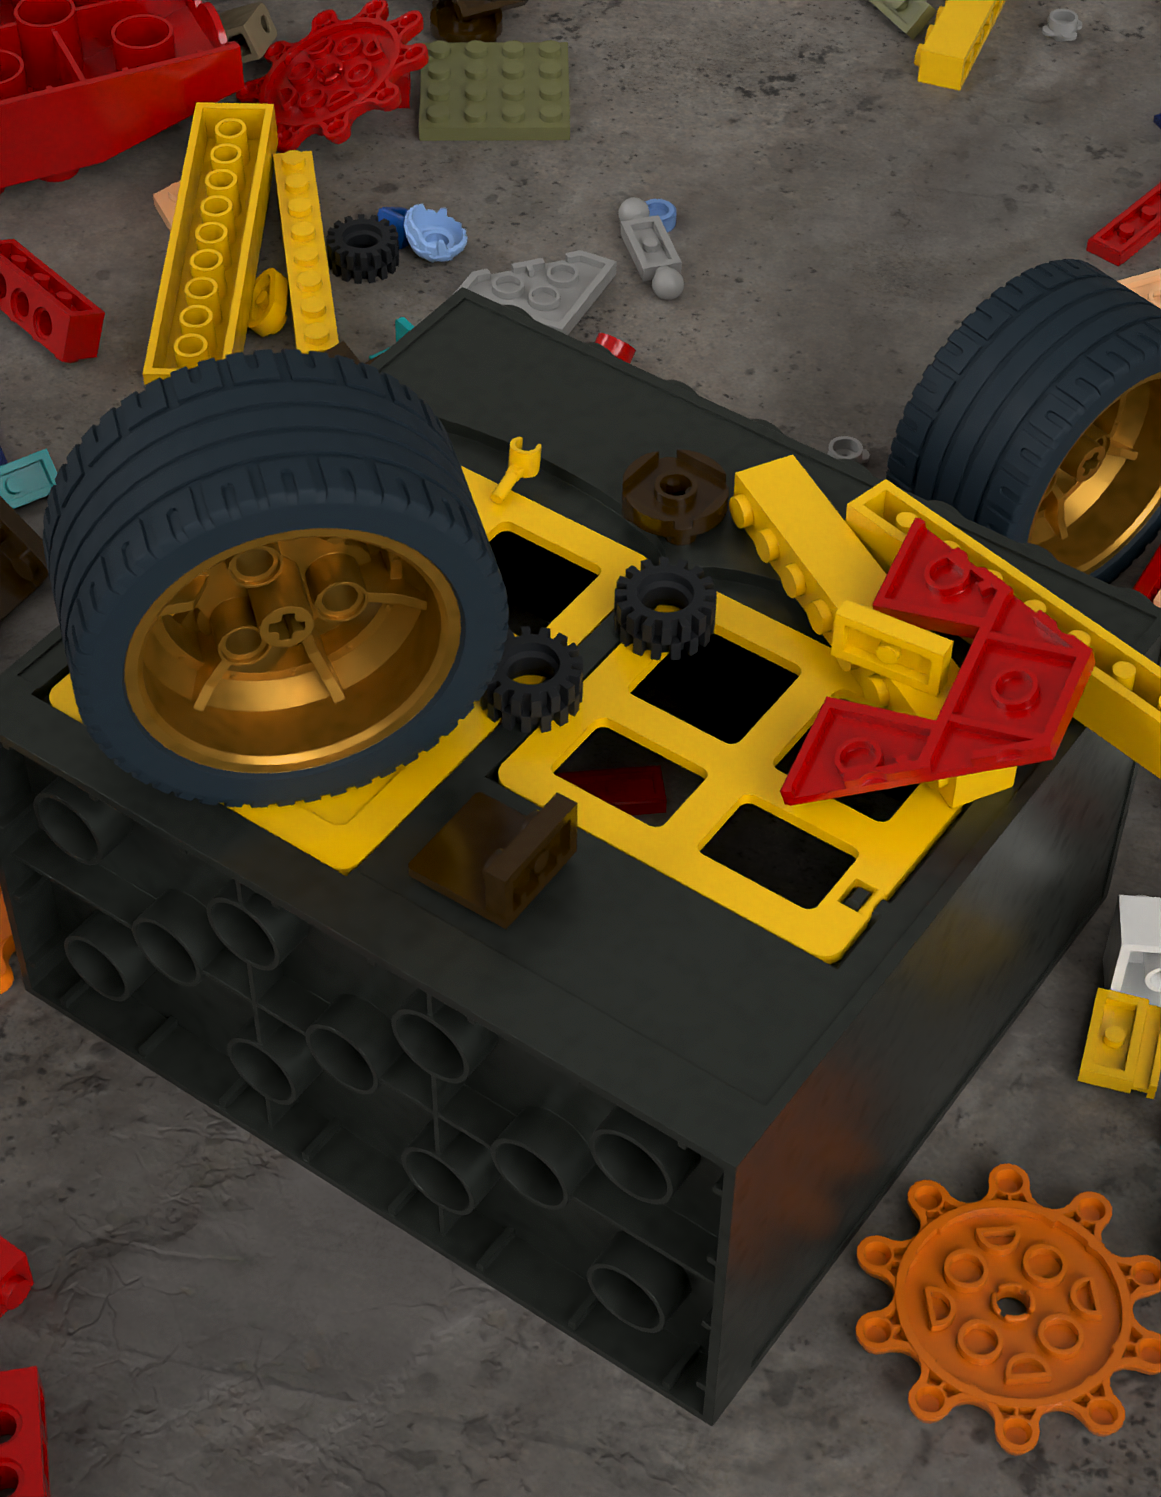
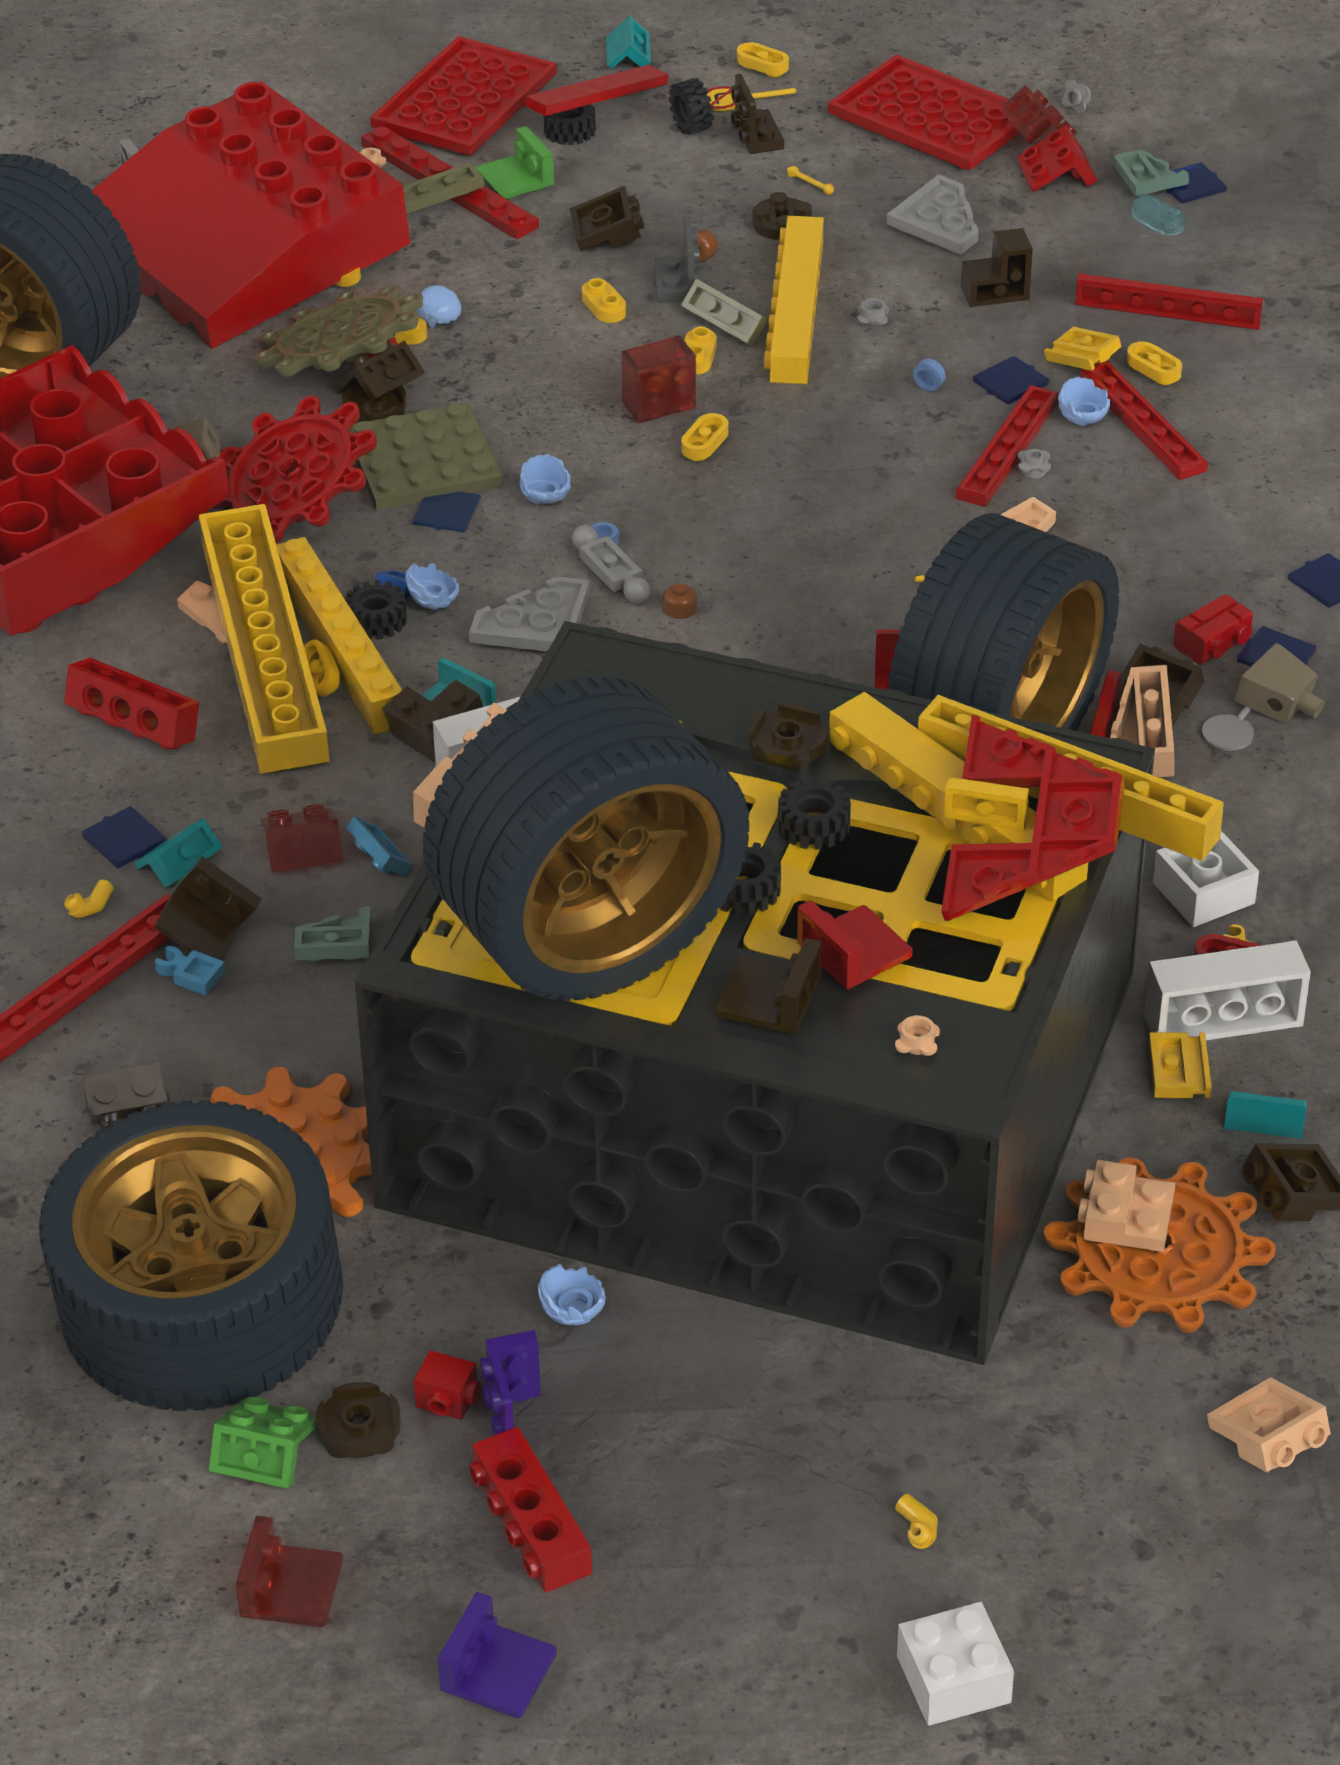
camera: 15 degrees left, 5 degrees down
(54, 1276) = (511, 1375): none -> dark purple bracket
(199, 1181) = (571, 1295): none -> light blue hair
(496, 155) = (447, 511): none -> clear blue piece
(613, 139) = (544, 479): none -> light blue hair
(637, 812) = (853, 944): none -> red bracket
(676, 961) = (917, 1036): none -> light nougat plate
(714, 306) = (679, 601): none -> dark orange piece
(784, 52) = (658, 379): none -> clear red brick
(816, 126) = (704, 436): none -> yellow plate
(848, 32) = (703, 344): none -> yellow plate
(979, 1242) = (1125, 1207): none -> light nougat plate
(1102, 103) = (929, 374): none -> medium blue tile

